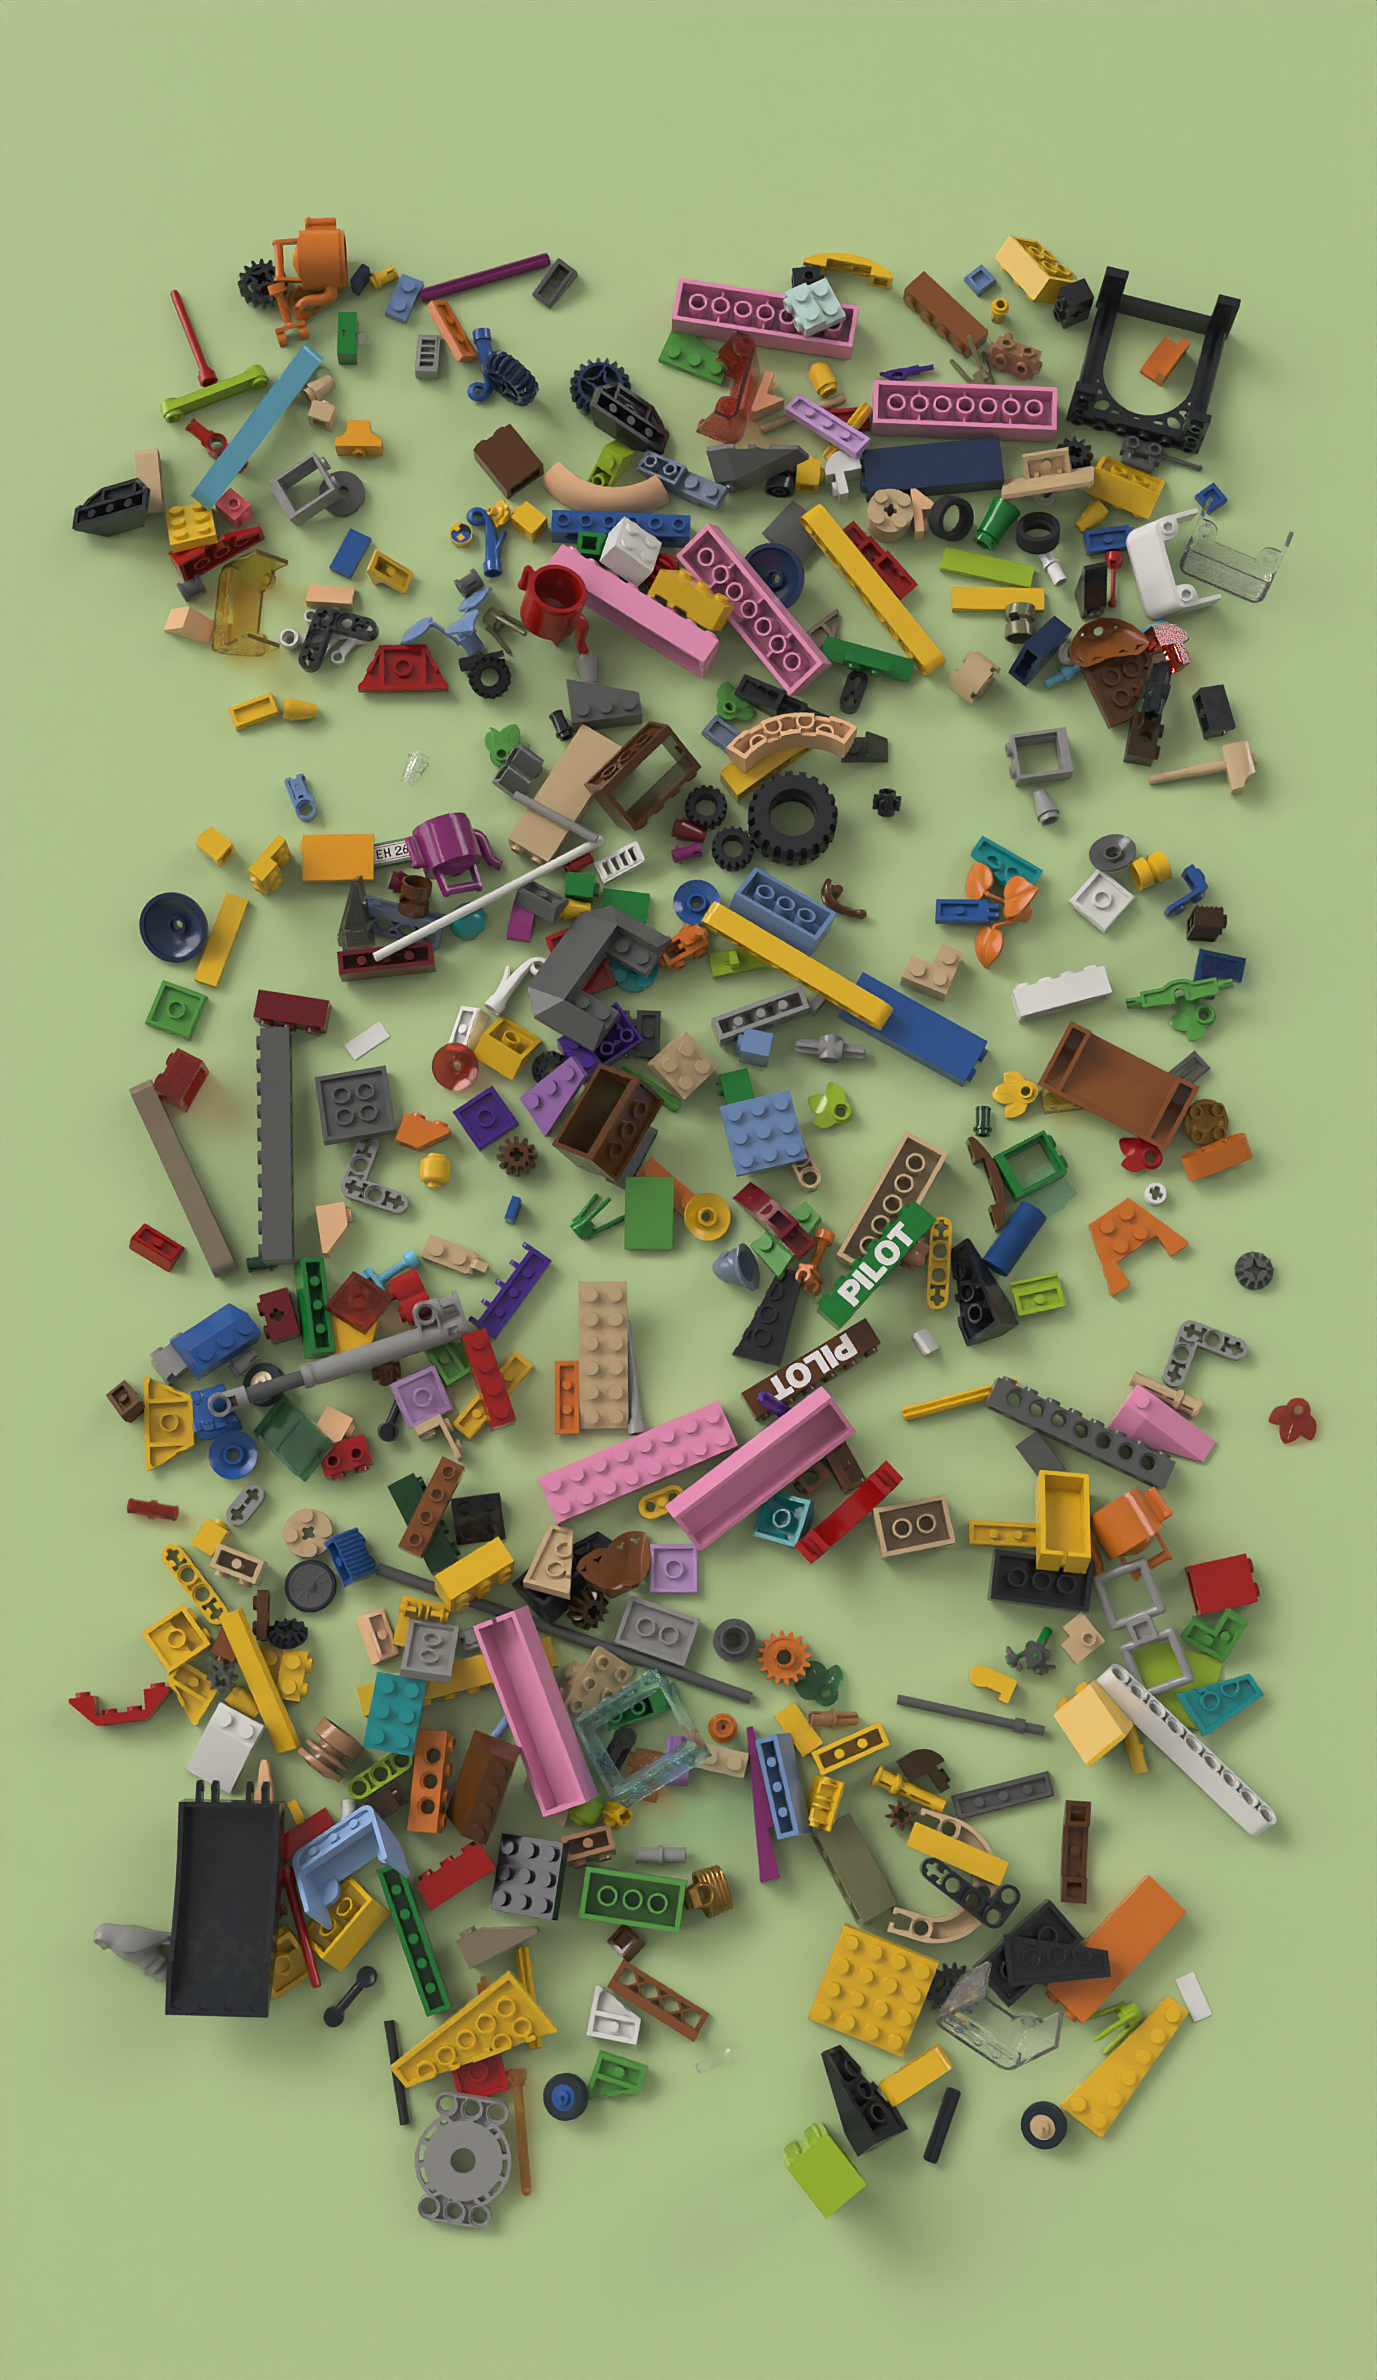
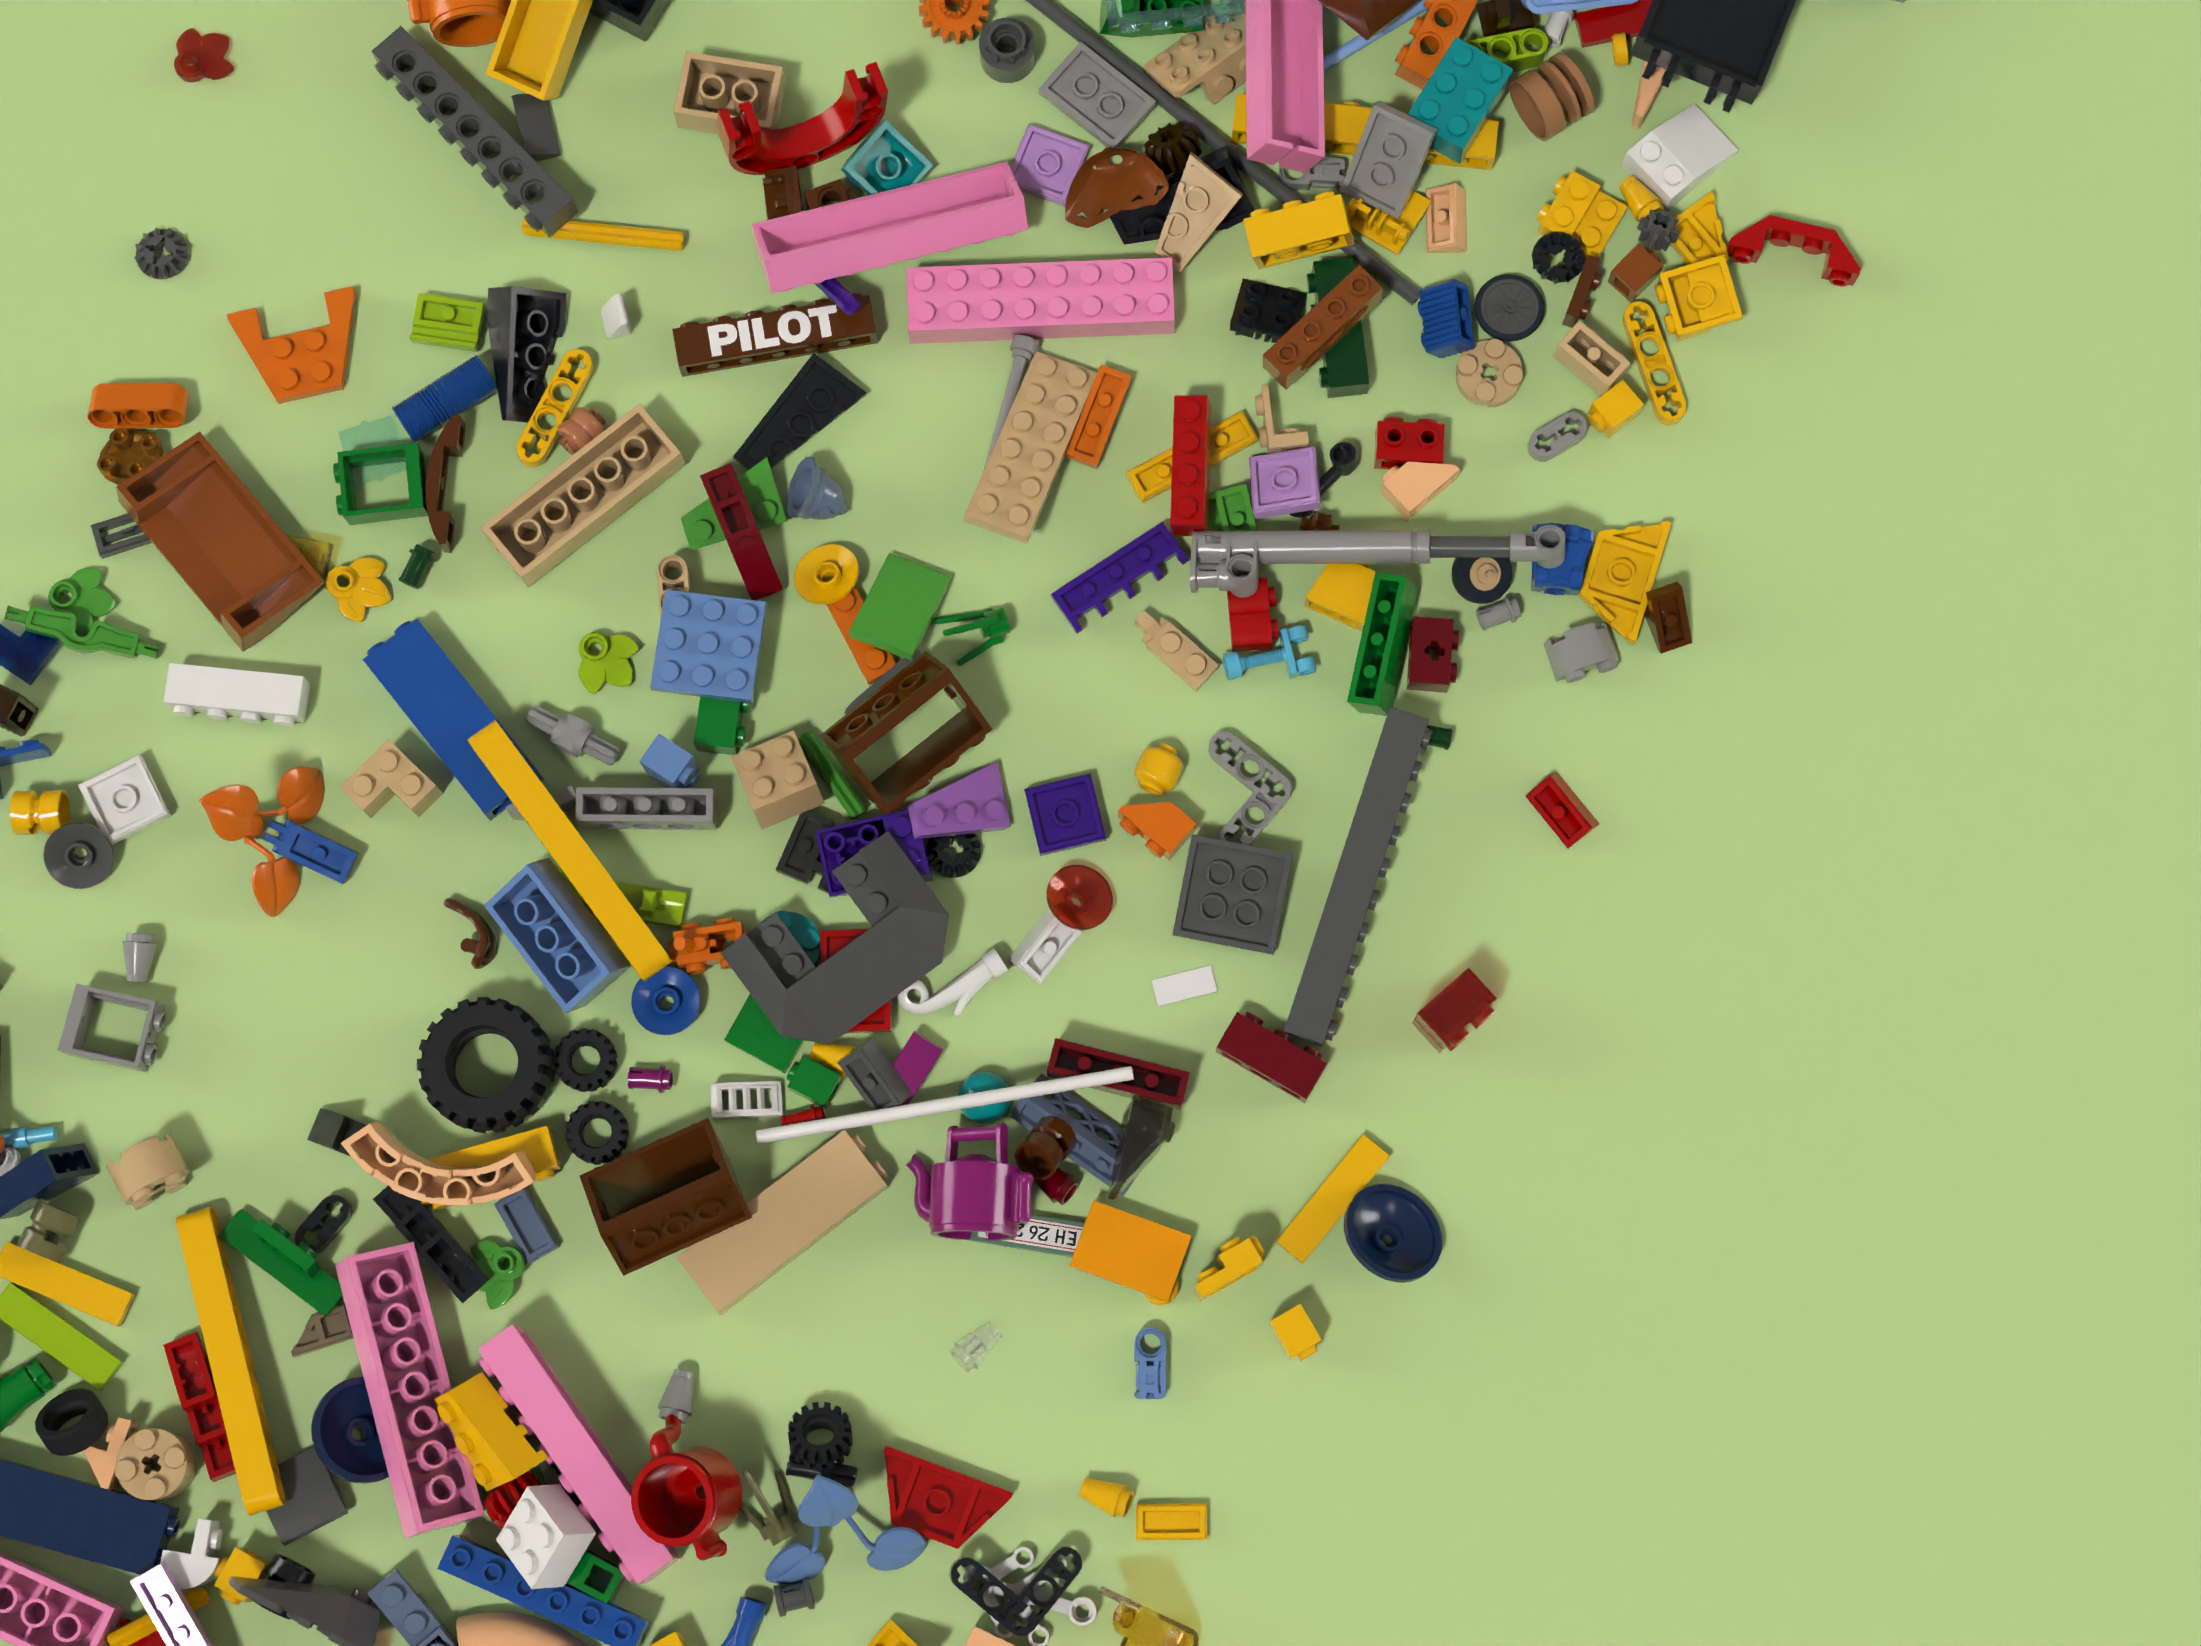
camera: 155 degrees left, 0 degrees up
(152, 1509) = (1678, 472): clear red pin -> none
(176, 1010) = (1428, 1123): bright green tile -> none
(183, 1179) = (1496, 885): dark tan beam -> none
(216, 1340) = (1525, 649): blue slope -> none
(223, 1447) = (1552, 485): blue dish -> none
(259, 1680) = (1612, 208): yellow tile -> none
(293, 1438) = (1467, 486): clear green piece -> none
(333, 1225) = (1319, 747): light nougat slope -> none
(359, 1302) = (1321, 622): clear red plate -> none
(502, 742) = (833, 1335): bright green plate -> none
(506, 1047) = (999, 898): yellow slope -> none
(513, 1210) = (1075, 678): blue tile -> none
(518, 771) = (834, 1280): dark grey brick -> none
(524, 1150) = (1056, 741): reddish brown gear -> none
(556, 817) = (809, 1187): light grey bar -> none
(563, 730) = (748, 1330): black pin -> none
(602, 706) = (682, 1332): dark grey wedge -> none
(659, 1499) = (1030, 244): yellow plate -> none
(687, 831) = (637, 1109): dark red cone -> none
(813, 1278) = (690, 490): orange bar -> none
(876, 1265) = (636, 412): green brick -> none
(886, 802) = (348, 1042): black gear -> none
(1002, 1534) = (622, 56): yellow tile -> none
(1003, 862) = (226, 886): teal wing -> none
(1136, 1151) = (239, 450): red plate -> none
(1148, 1196) = (229, 395): white bush -> none
(1159, 1426) = (376, 113): bright pink wedge -> none
(1177, 1399) = (334, 133): tan pin -> none
(1190, 1344) = (283, 193): light grey beam -> none

